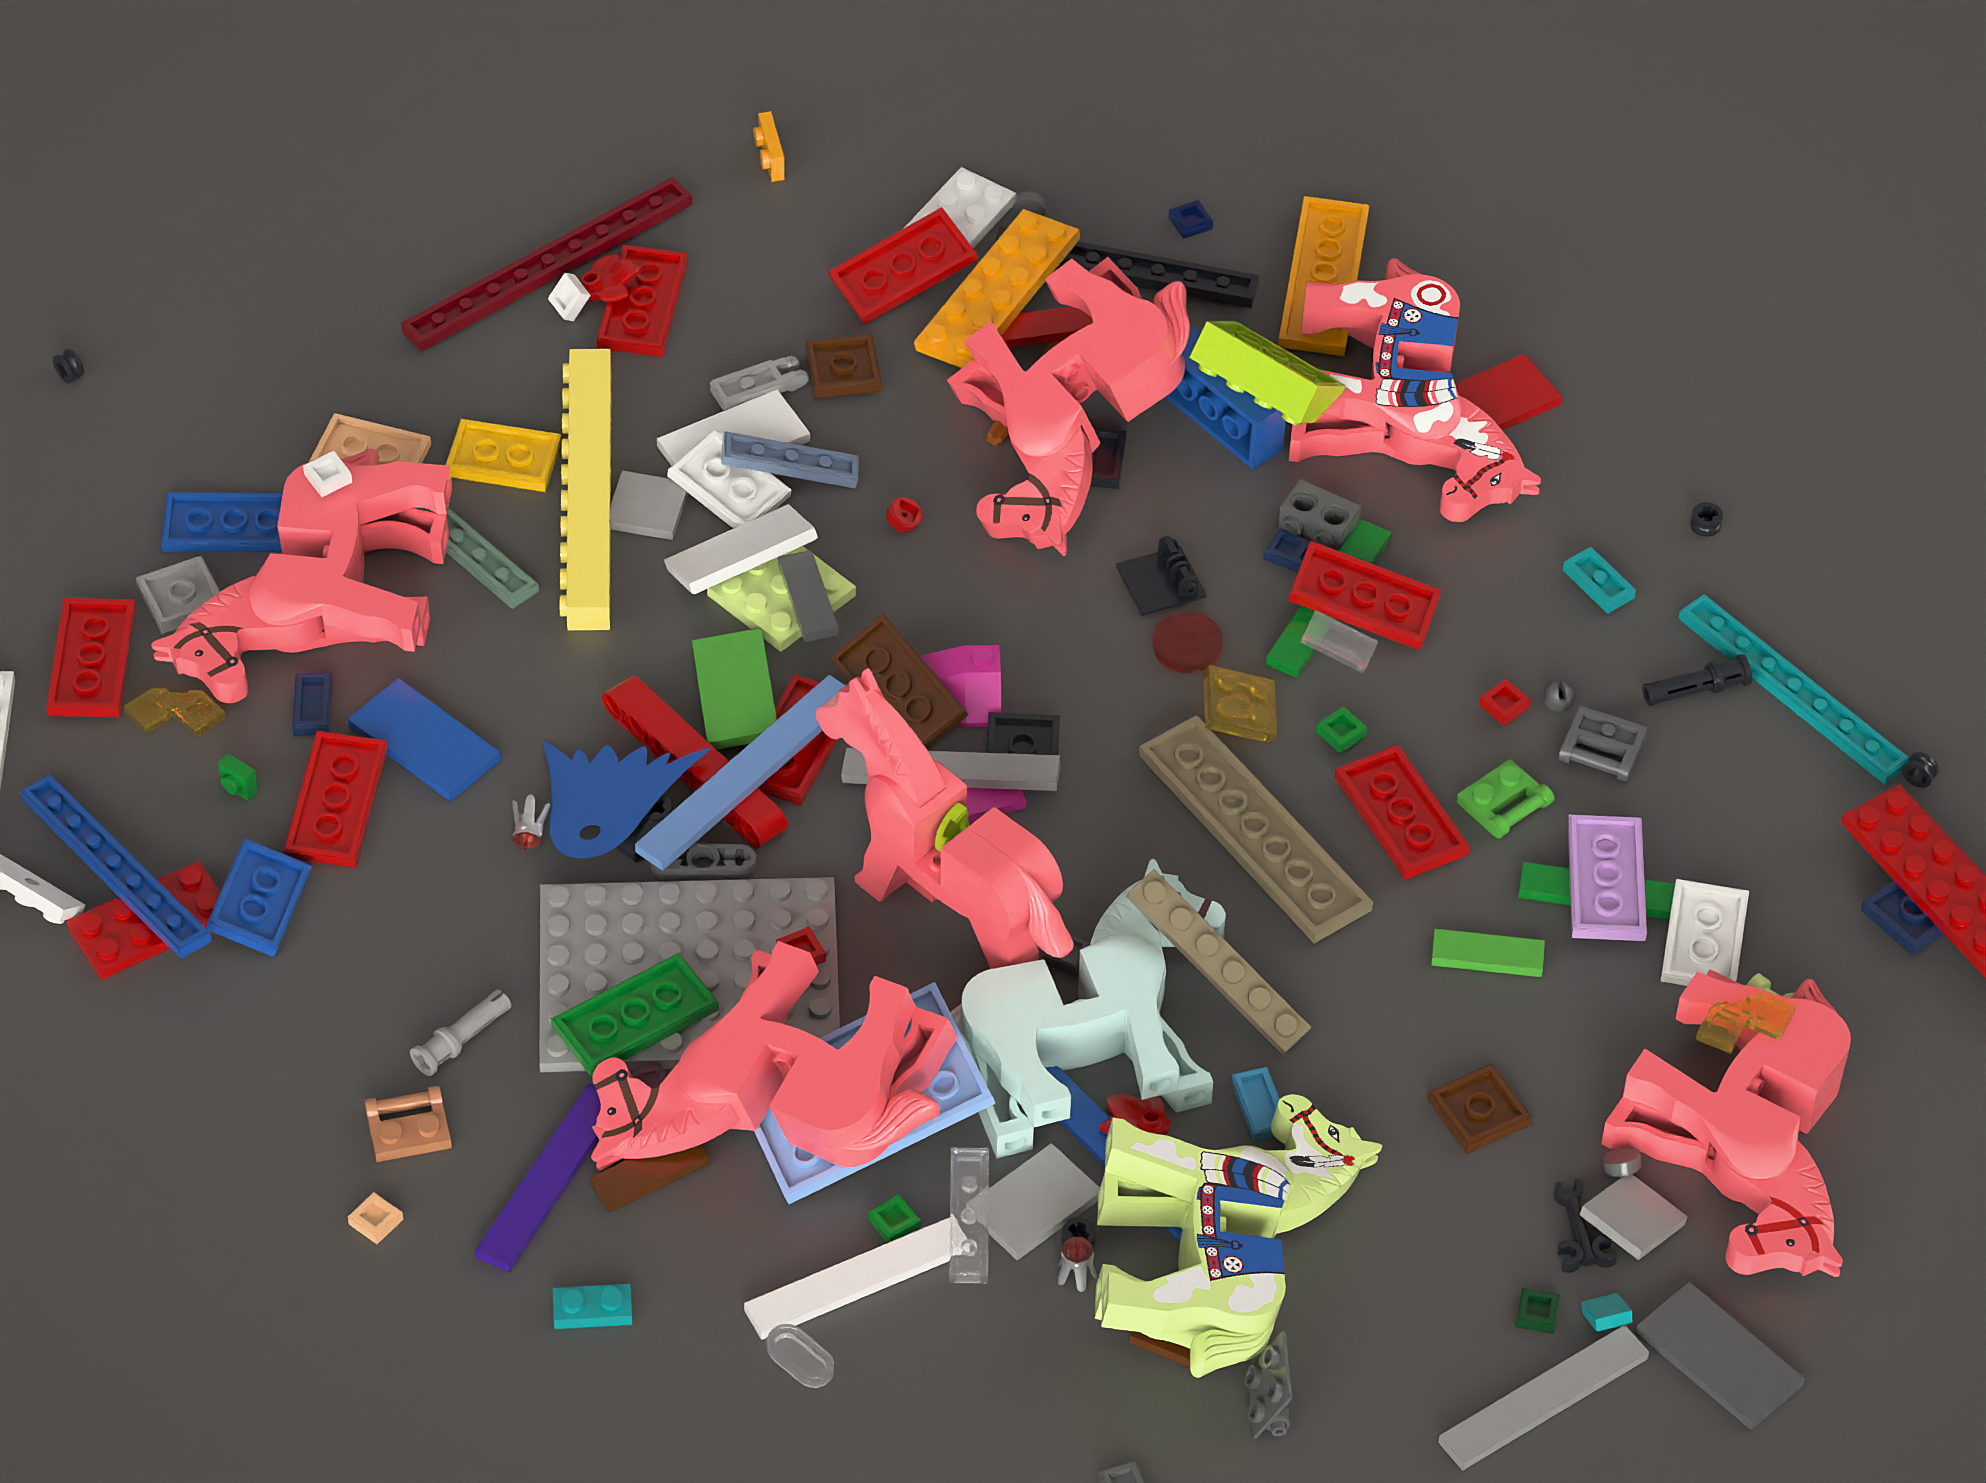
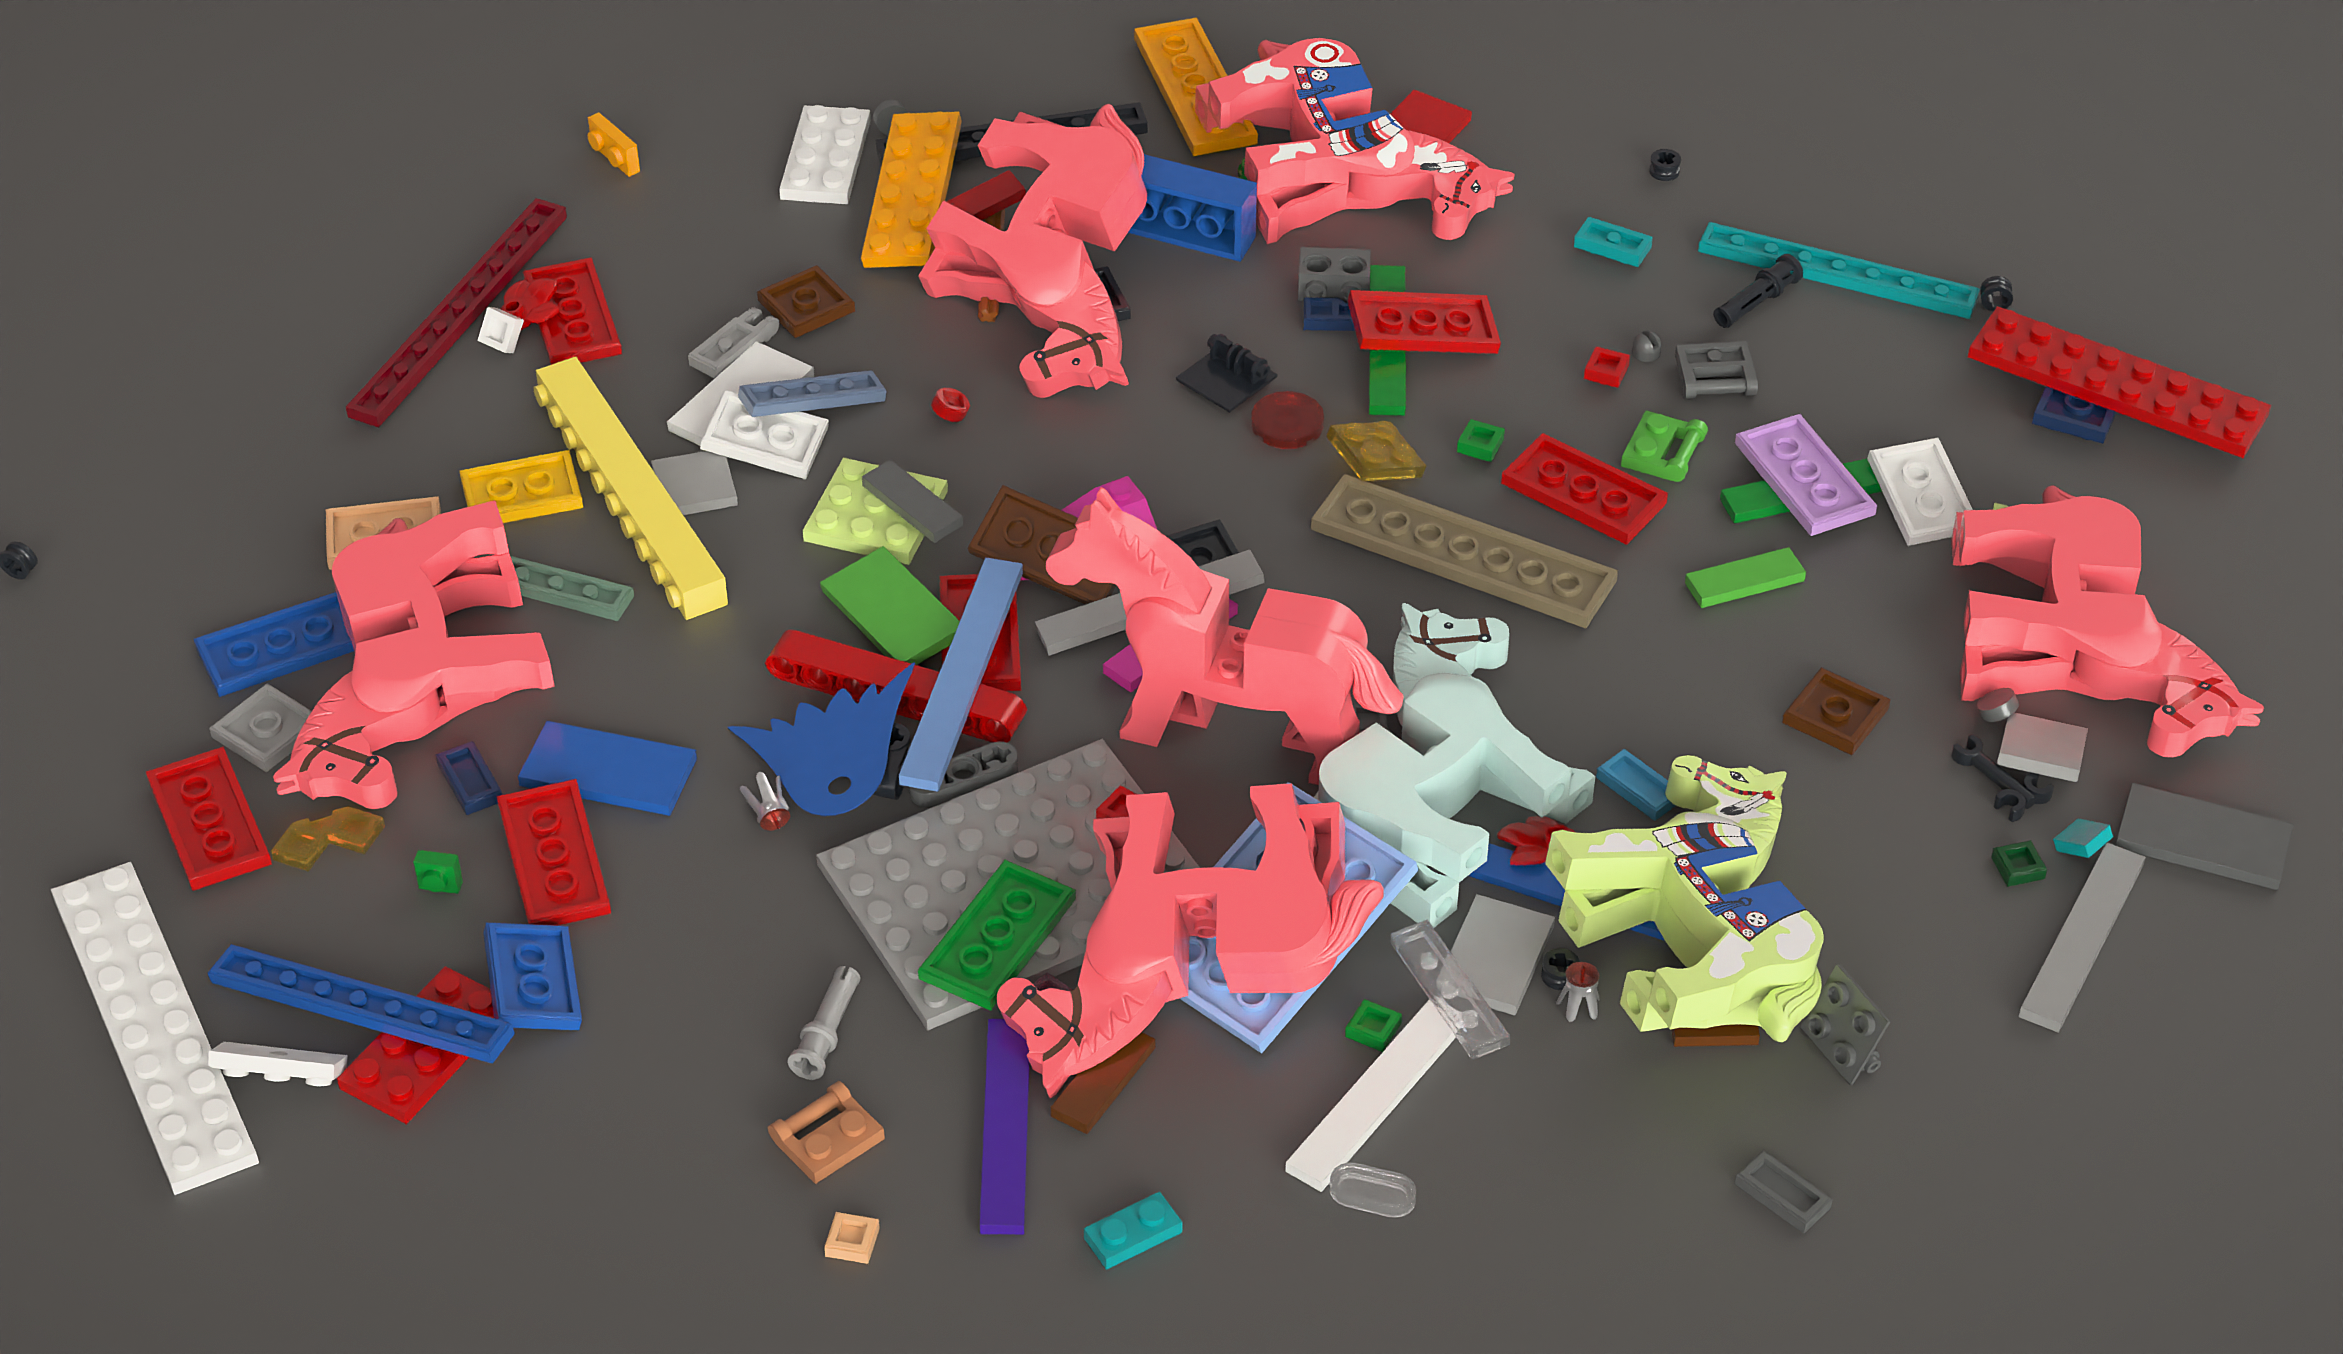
camera: 25 degrees left, 5 degrees down
(327, 473) = (376, 547): white plate -> none
(740, 549) = (818, 484): white tile -> none
(903, 265) = (809, 198): red plate -> none
(953, 824) = (1231, 628): lime tile -> none
(1190, 219) = (1041, 81): clear blue tile -> none
(1218, 962) = (1527, 669): dark tan plate -> none
(1265, 371) = (1225, 159): lime slope -> none
(1339, 641) = (1425, 369): clear tile -> none
(1757, 1012) = (2024, 540): clear yellow tile -> none

